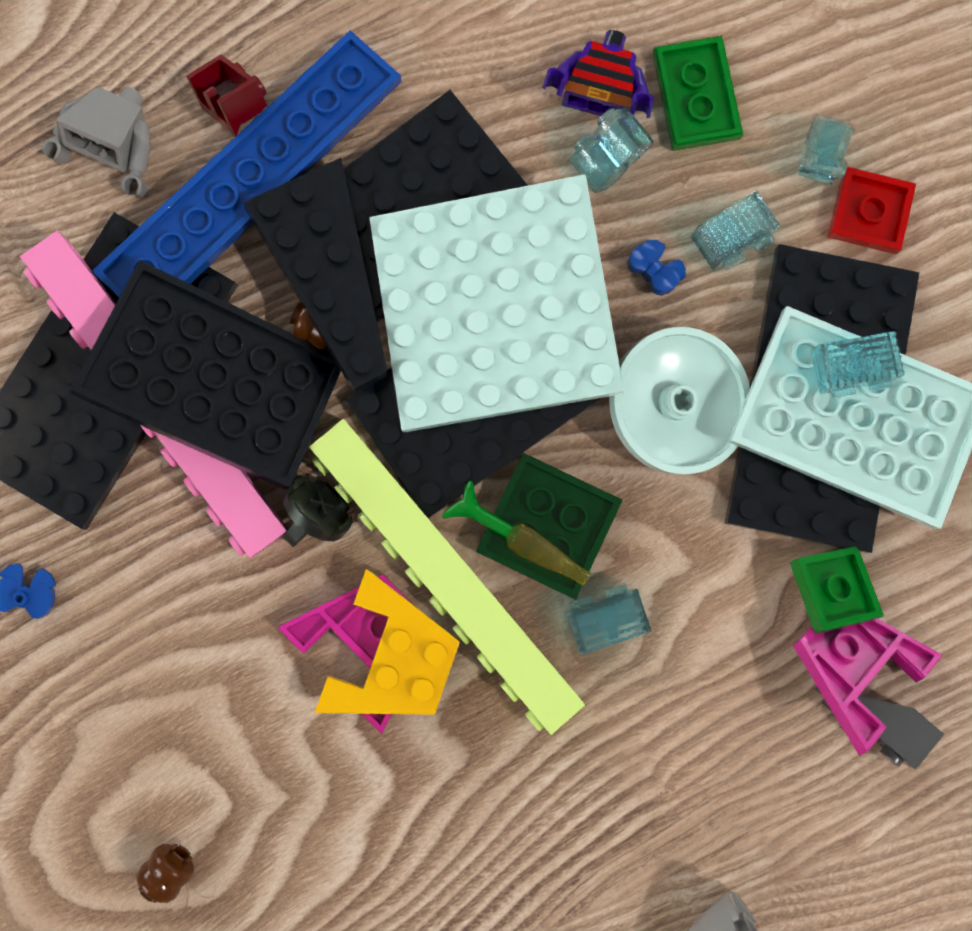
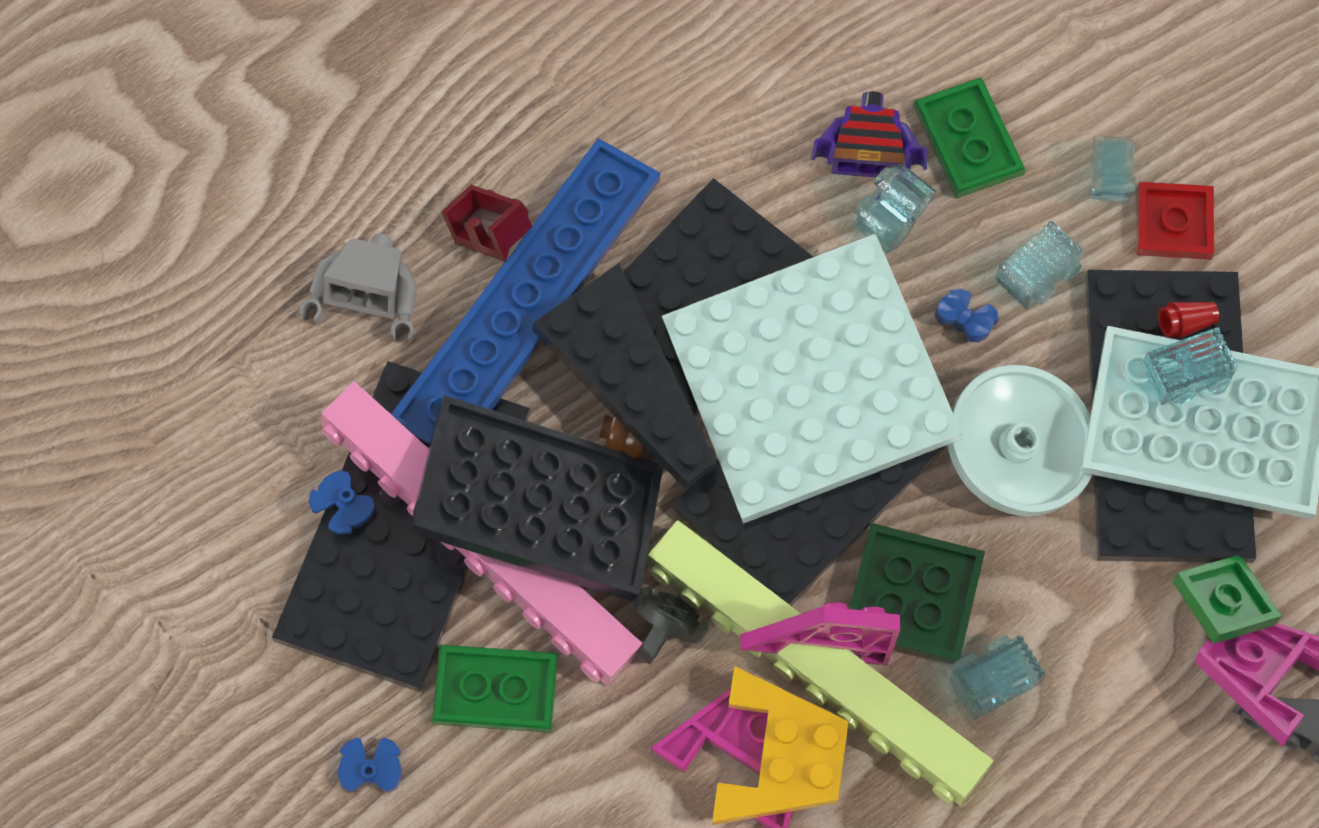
camera: 10 degrees left, 15 degrees down
(48, 351) = (353, 508): none -> blue piece
(152, 541) = (495, 688): none -> green tile
(451, 562) = (865, 632): none -> dark pink wing
(519, 538) = (912, 613): clear yellow piece -> none
(863, 311) = (1185, 318): none -> red cone

